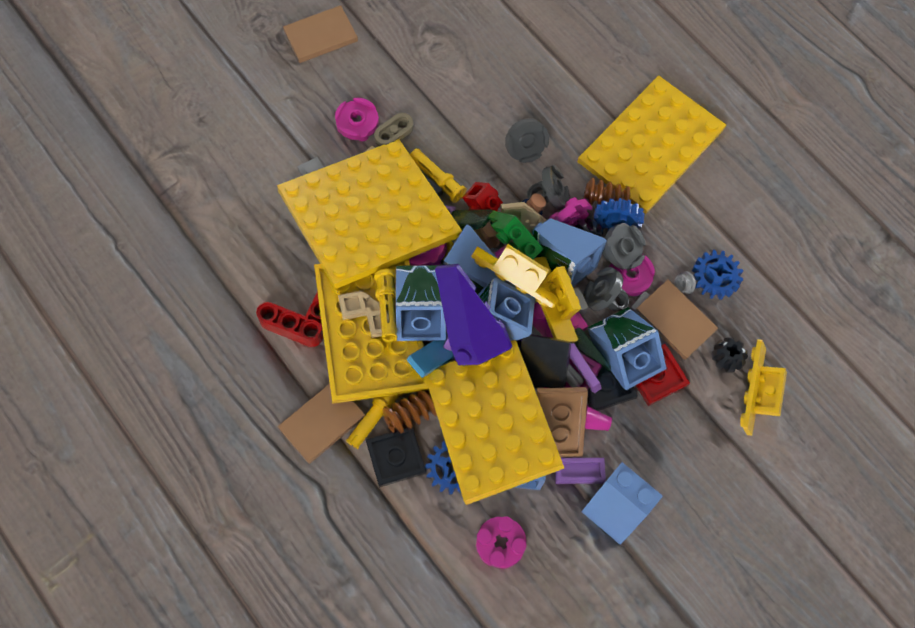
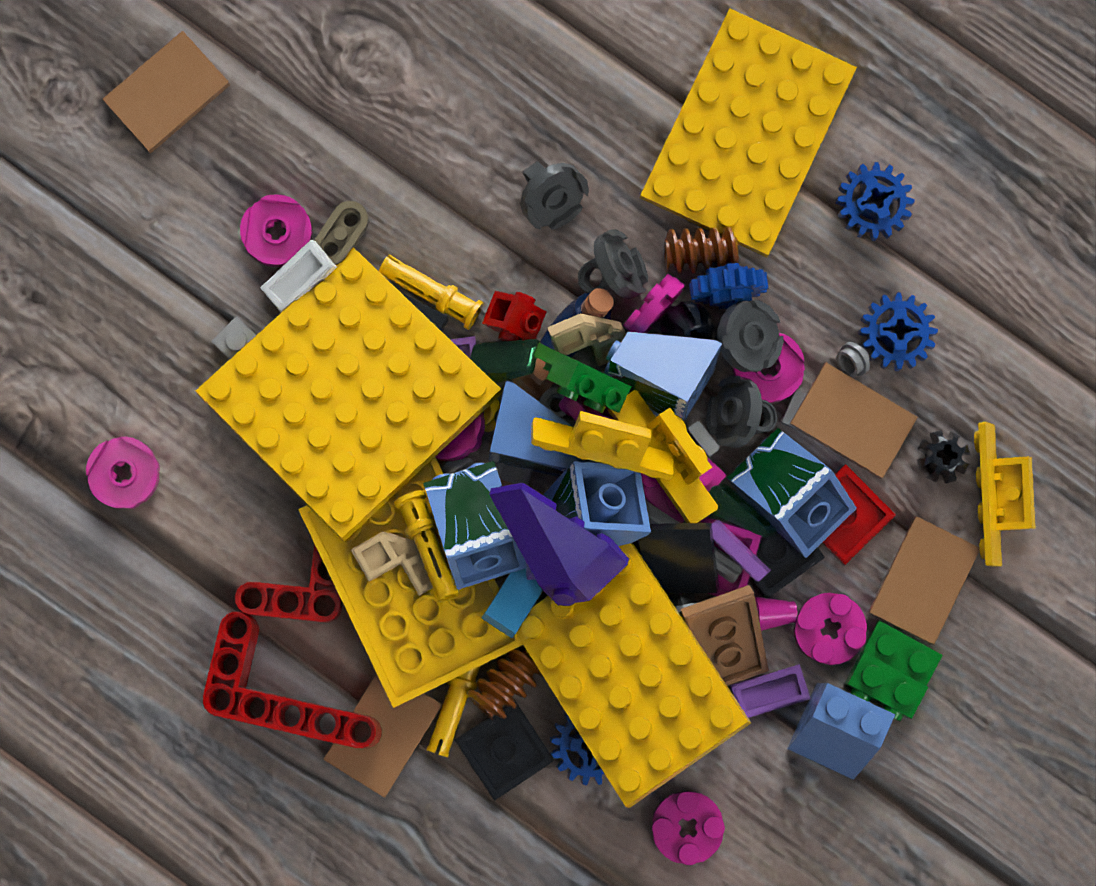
camera: 20 degrees left, 15 degrees up
(217, 235) = (129, 492): none -> dark pink plate
(260, 382) = (275, 705): none -> red beam
(361, 143) = (298, 275): none -> white tile
(637, 430) = (849, 637): none -> dark pink plate
(668, 477) = (893, 671): none -> green plate
(699, 429) = (924, 580): none -> medium nougat tile
(718, 199) = (870, 187): none -> blue gear

